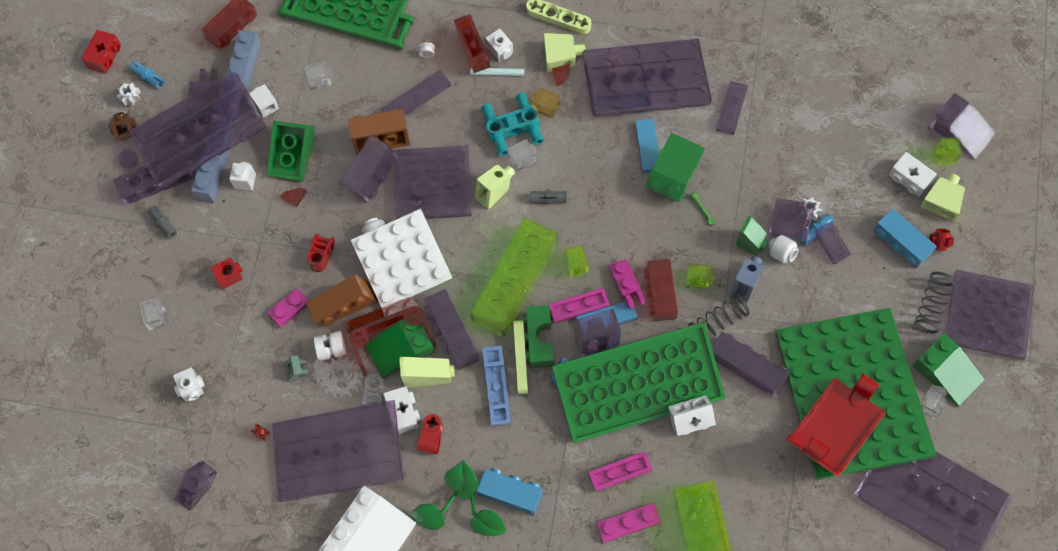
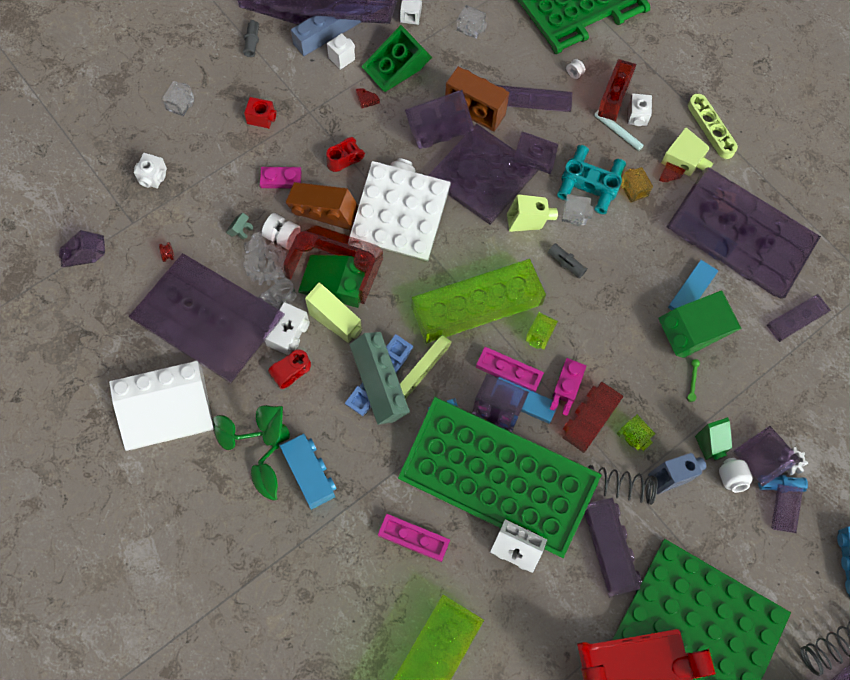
camera: 35 degrees right, 0 degrees up
(451, 329) = (387, 297): clear purple brick -> none
(456, 136) = (536, 152): none -> clear purple tile
(500, 386) = (379, 378): none -> sand green brick
(539, 353) = (462, 351): green arch -> none
(628, 523) = (380, 588): dark pink plate -> none

